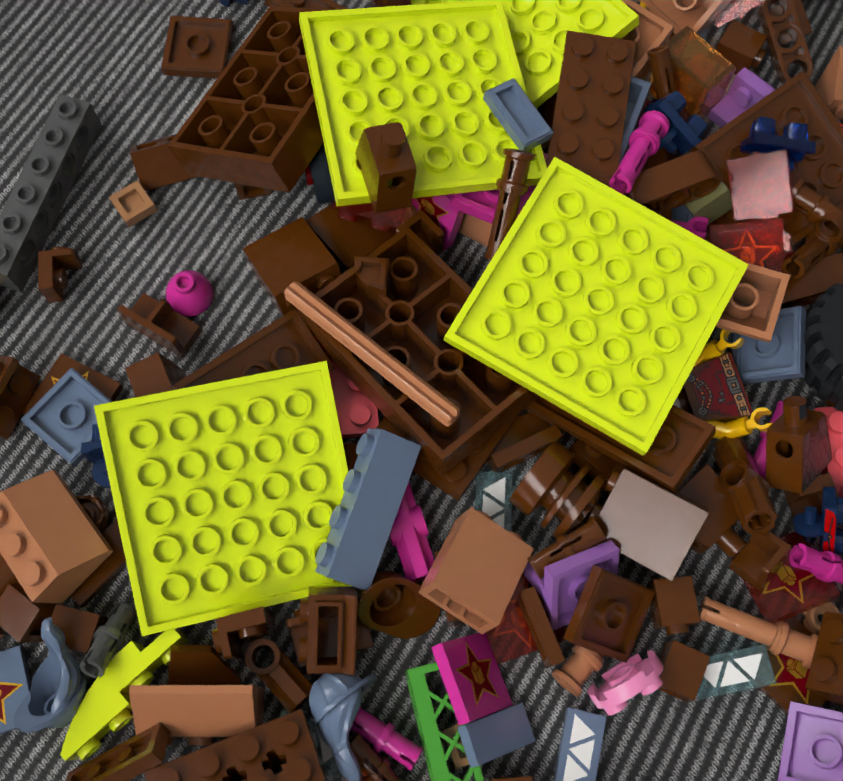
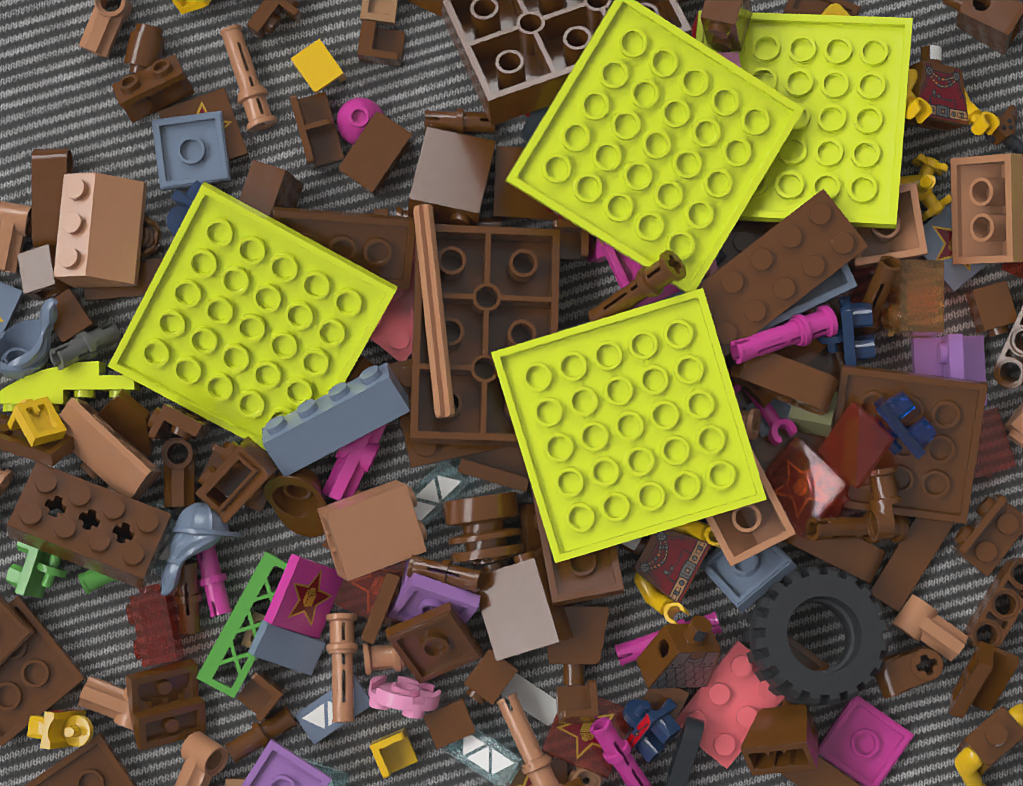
camera: 45 degrees right, 15 degrees up
(86, 339) = (251, 93): none -> nougat pin
(117, 736) = (38, 421): none -> yellow bracket
(121, 276) = (317, 66): none -> yellow panel
(157, 232) = (380, 45): none -> reddish brown panel
(221, 299) = (376, 153): none -> reddish brown panel
(262, 228) = (459, 121): none -> reddish brown pin
(373, 273) = (495, 247): reddish brown tile -> none
(384, 156) = (559, 192): reddish brown torso -> none
(517, 115) = (714, 225): sand blue tile -> none
(540, 694) = (342, 626): none -> nougat pin
(660, 740) = (393, 752): none -> yellow panel
(728, 592) = (532, 699): none -> white sticker
(745, 485) = (617, 644): reddish brown piece -> none

